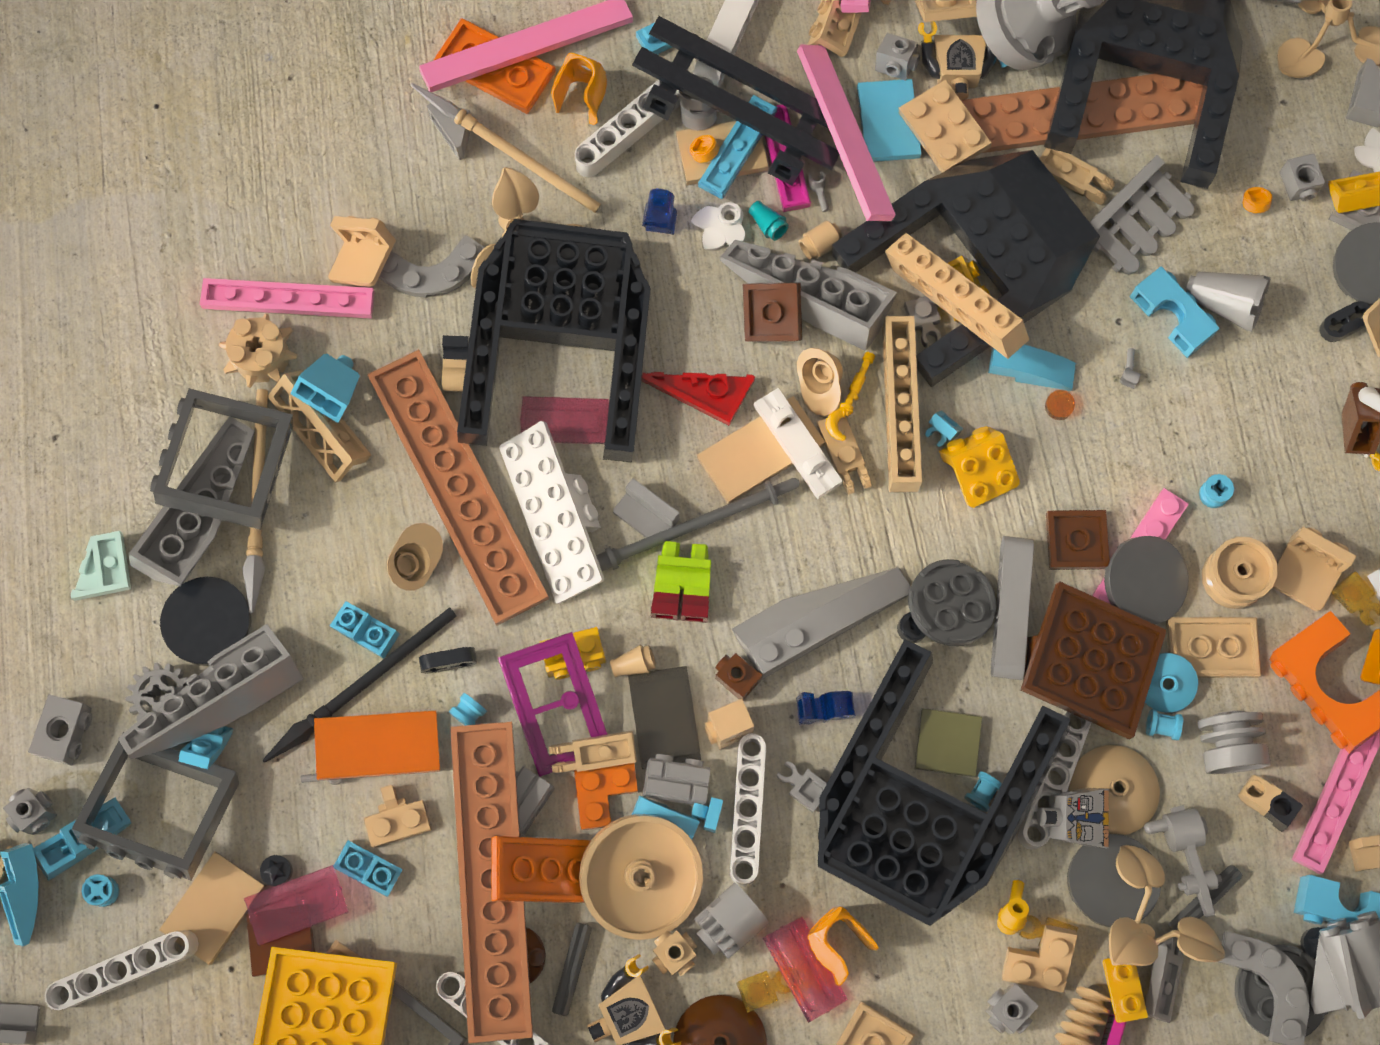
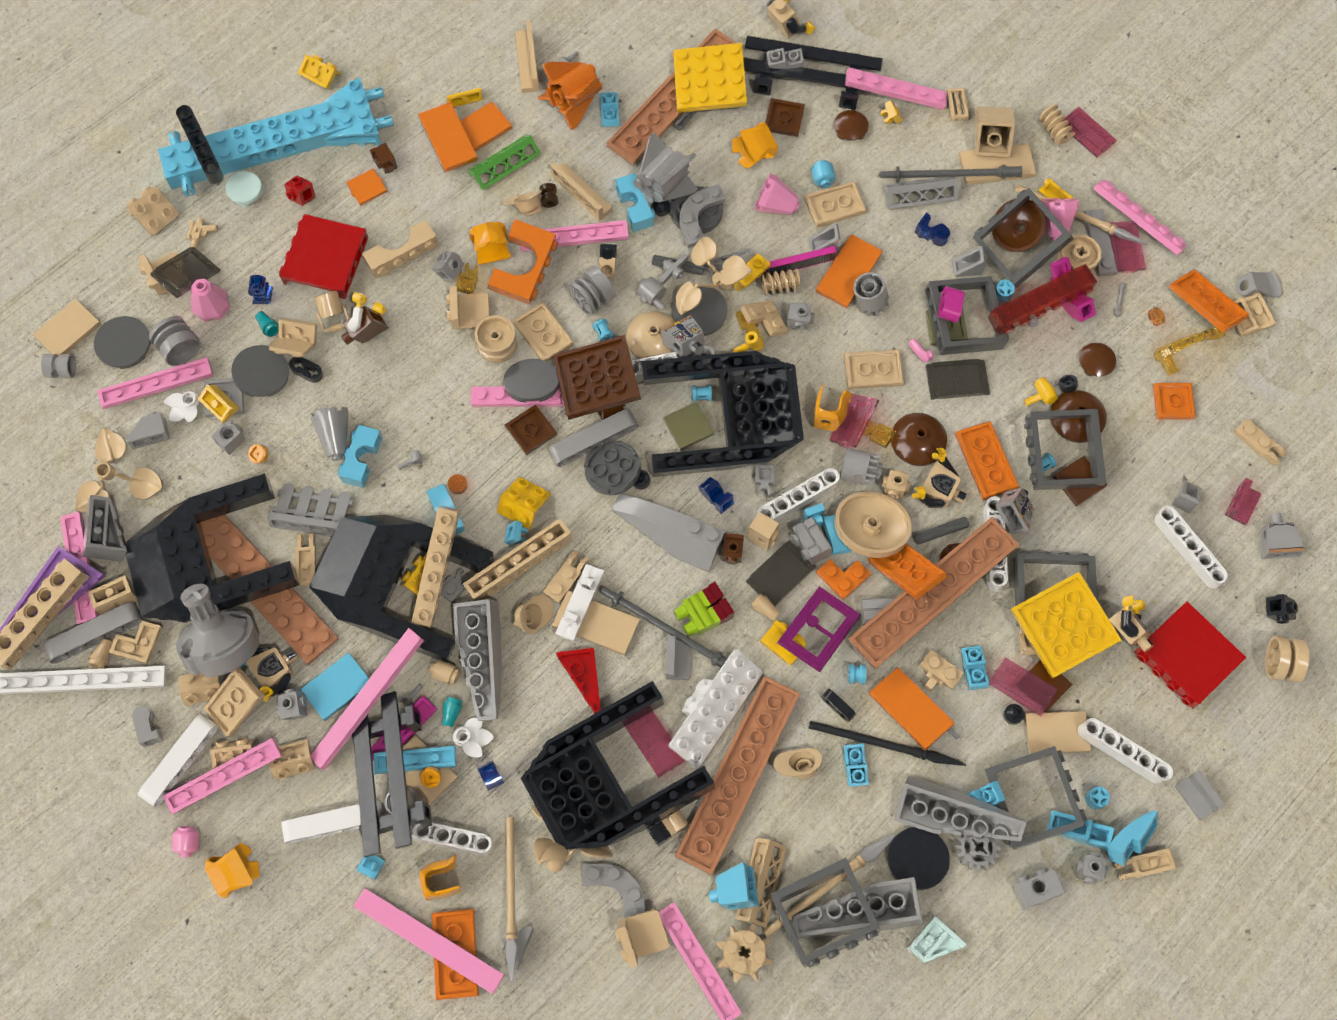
camera: 125 degrees left, 5 degrees down
(596, 752) = (829, 591): tan hinge -> none
(772, 311) = (511, 665): reddish brown tile -> none
(846, 408) = (541, 589): yellow piece -> none
(944, 127) = (324, 647): tan plate -> none
(1184, 688) = (571, 336): medium azure dish -> none
(1211, 495) = (454, 381): medium azure wheel -> none

